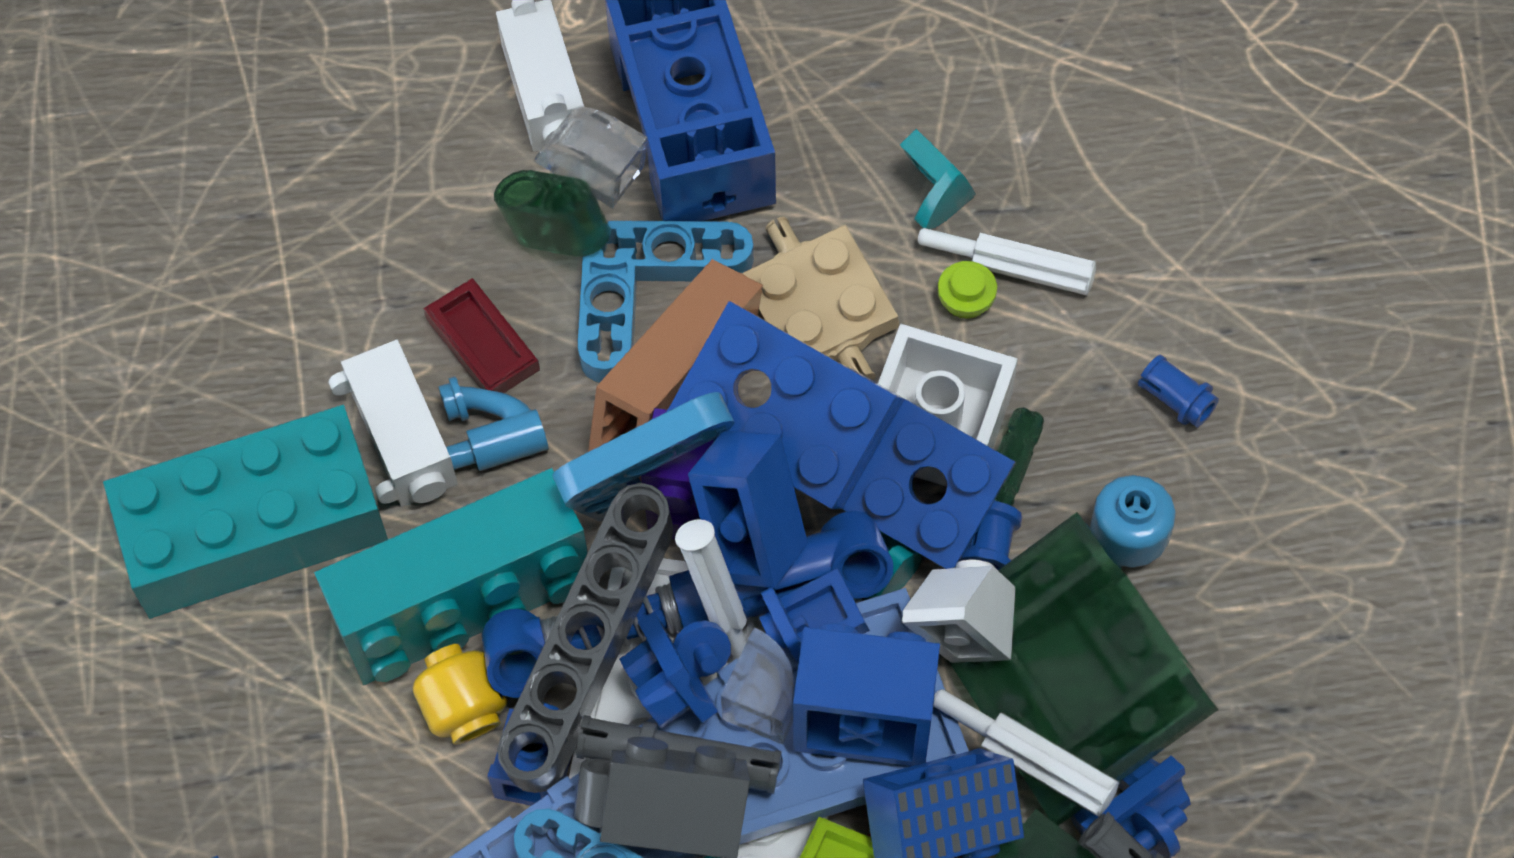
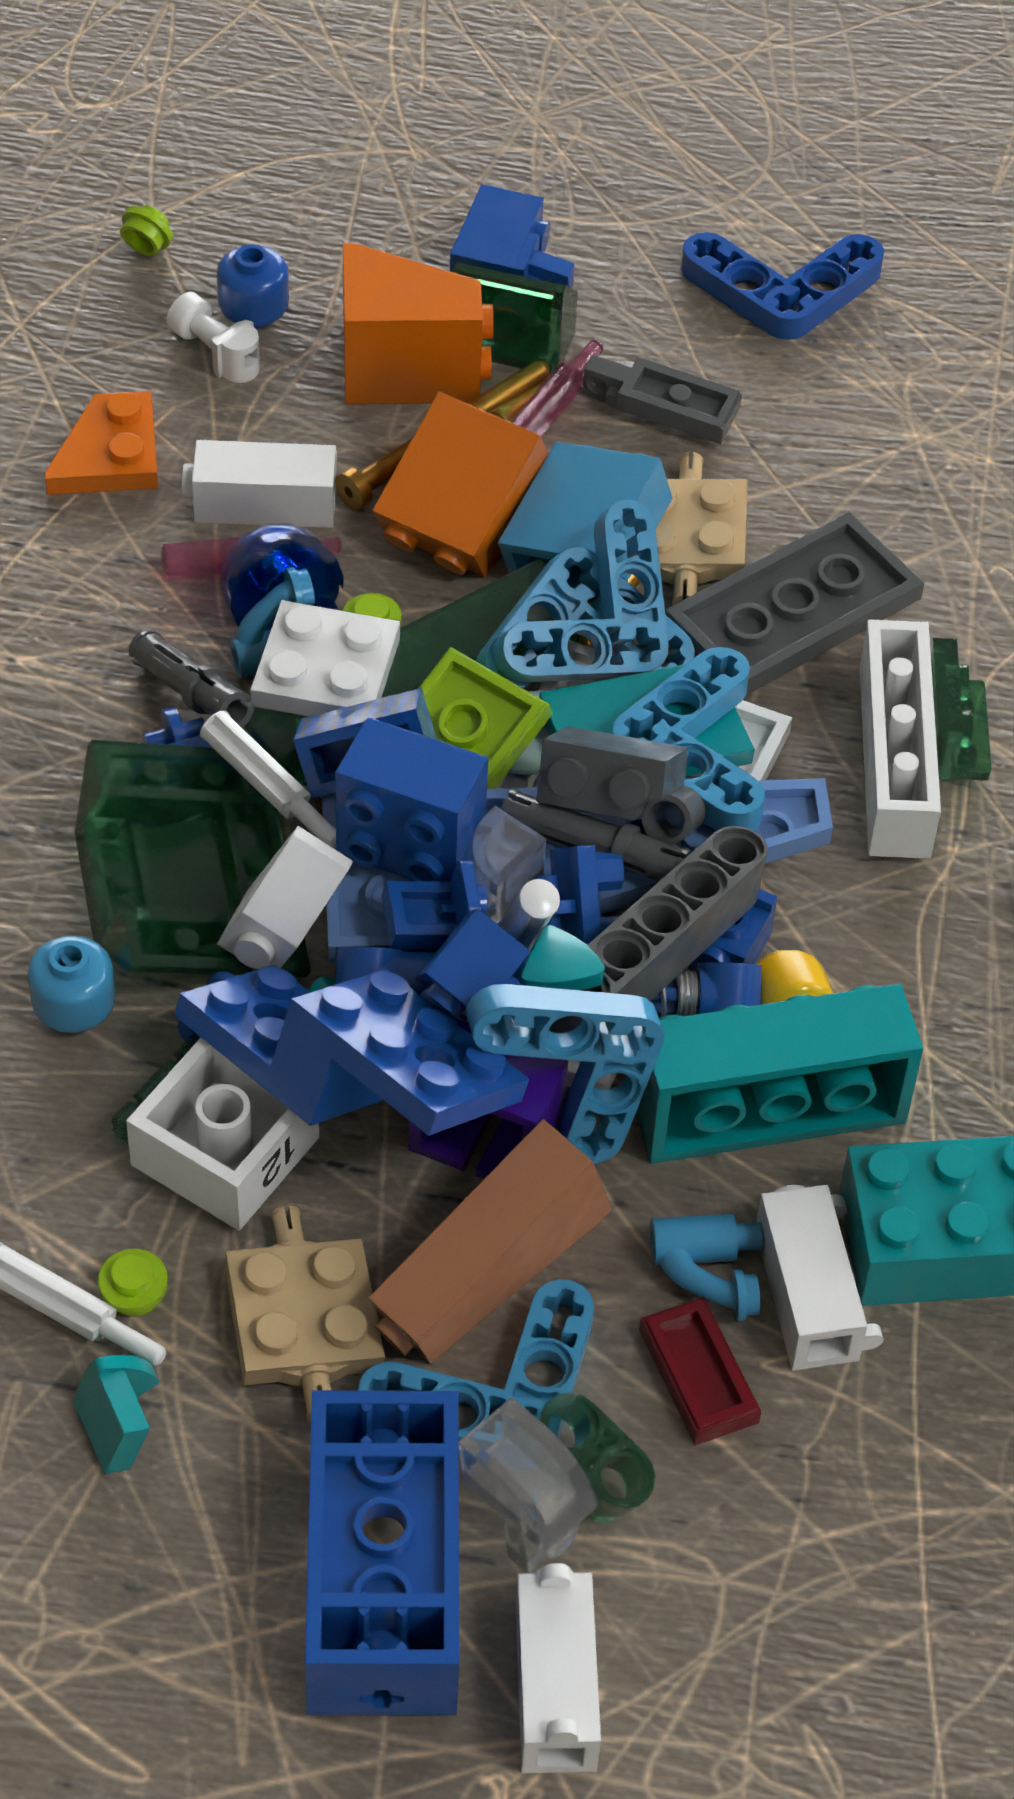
camera: 170 degrees left, 10 degrees down
(658, 517) = (562, 962): none -> teal tile

